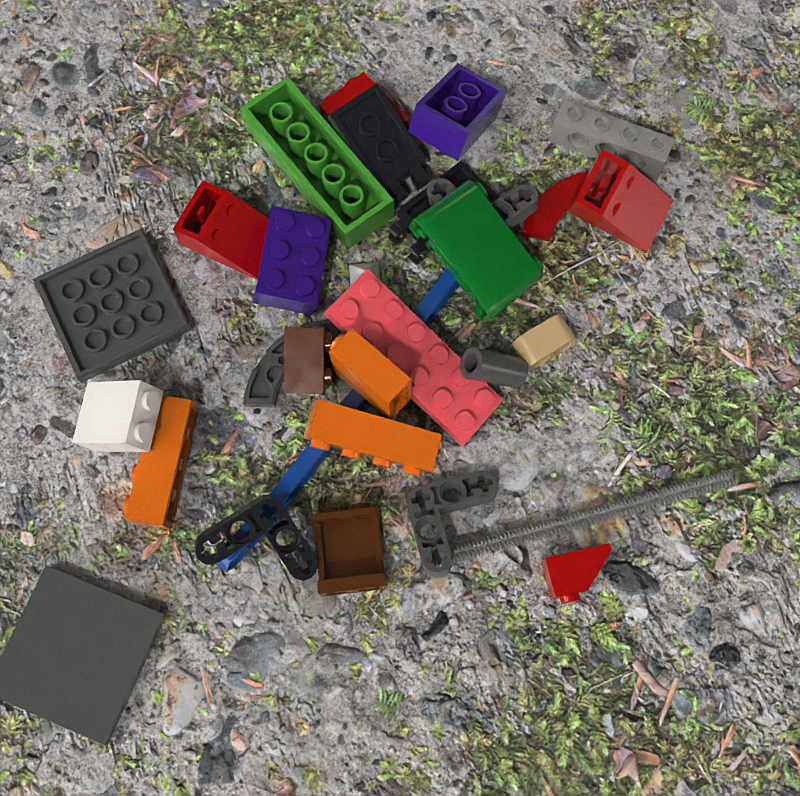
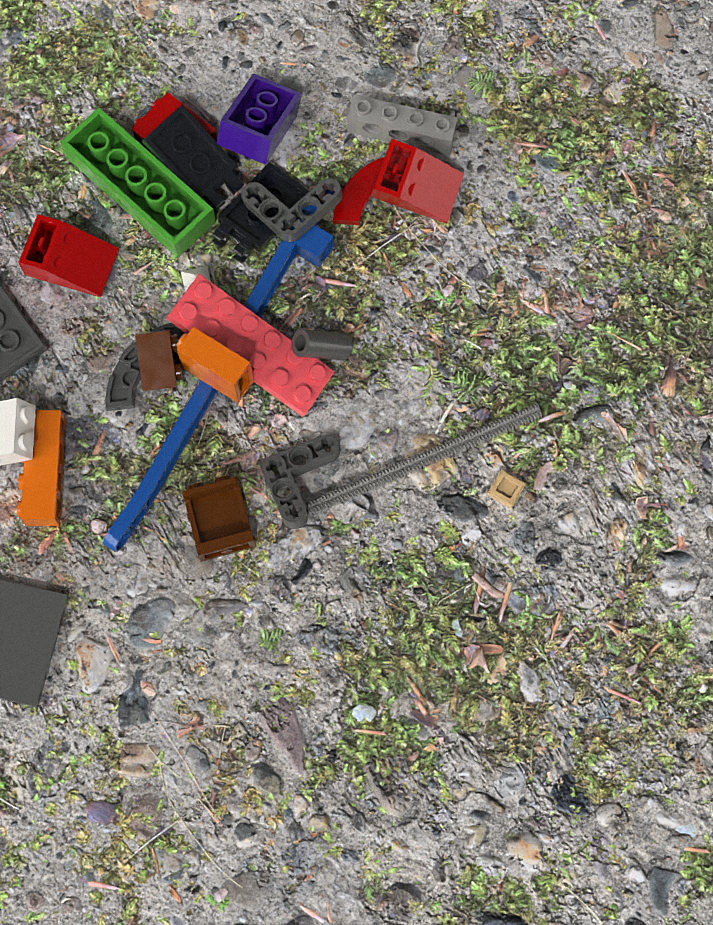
camera: 10 degrees left, 0 degrees up
(258, 526) = (137, 507): black beam -> none
(292, 260) = (129, 275): dark purple brick -> none
(371, 436) = (224, 418): orange brick -> none
(478, 249) = (294, 242): green windscreen -> none
(544, 341) = (364, 316): tan beam -> none
(573, 572) = (412, 506): red slope -> none
(684, 565) = (506, 489): none -> tan tile

